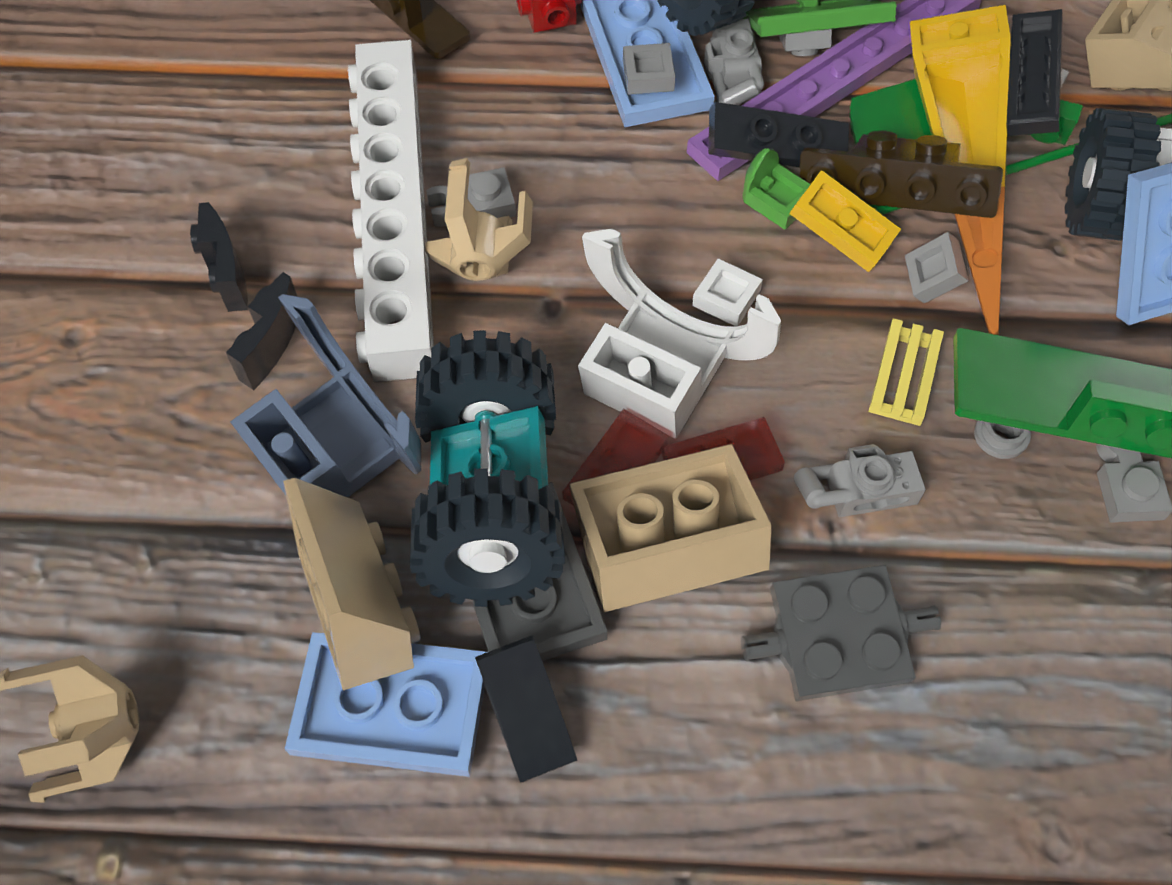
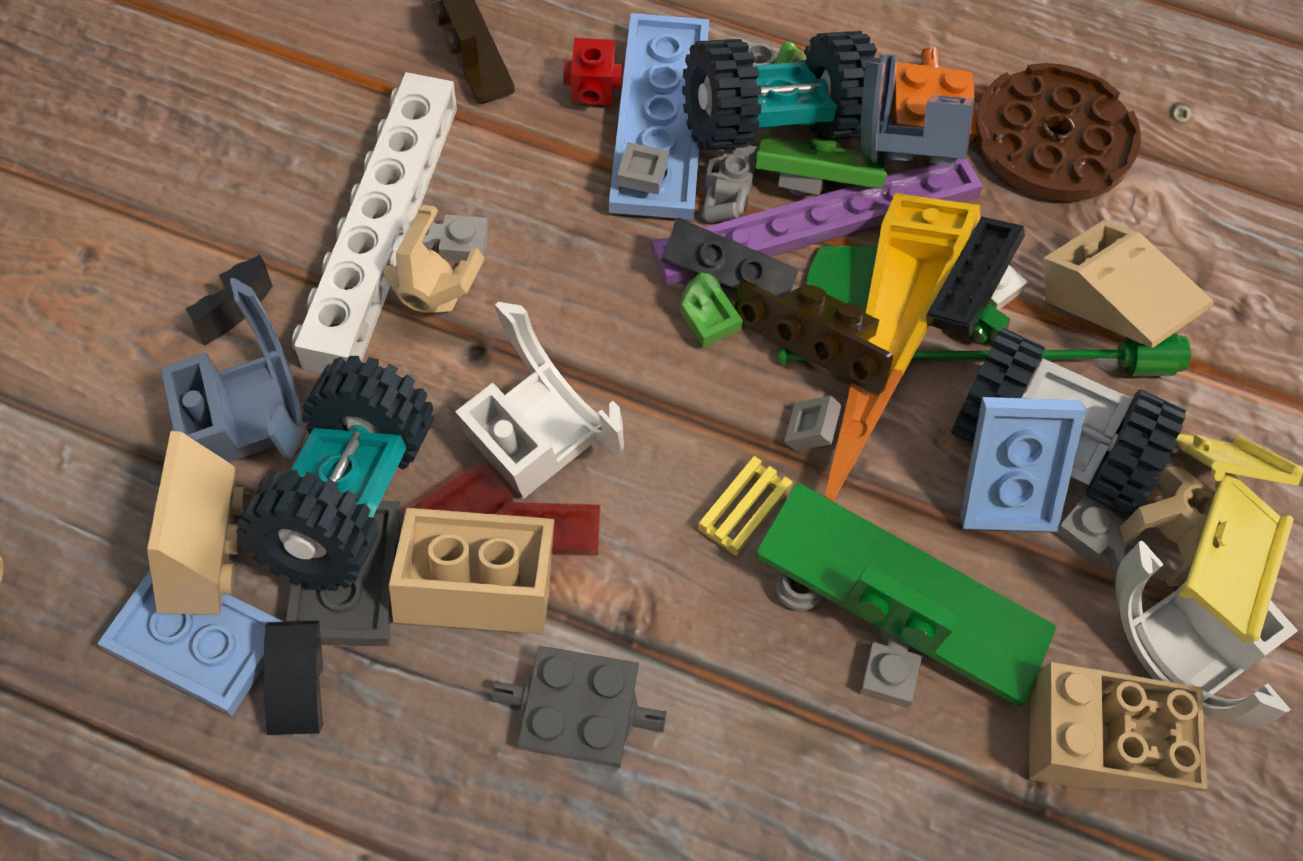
camera: 15 degrees right, 0 degrees up
(224, 268) = (222, 237): black slope -> none
(727, 292) = (624, 385): white plate -> none
(845, 221) = (752, 356): yellow plate -> none
(863, 482) = (658, 588): light grey piece -> none

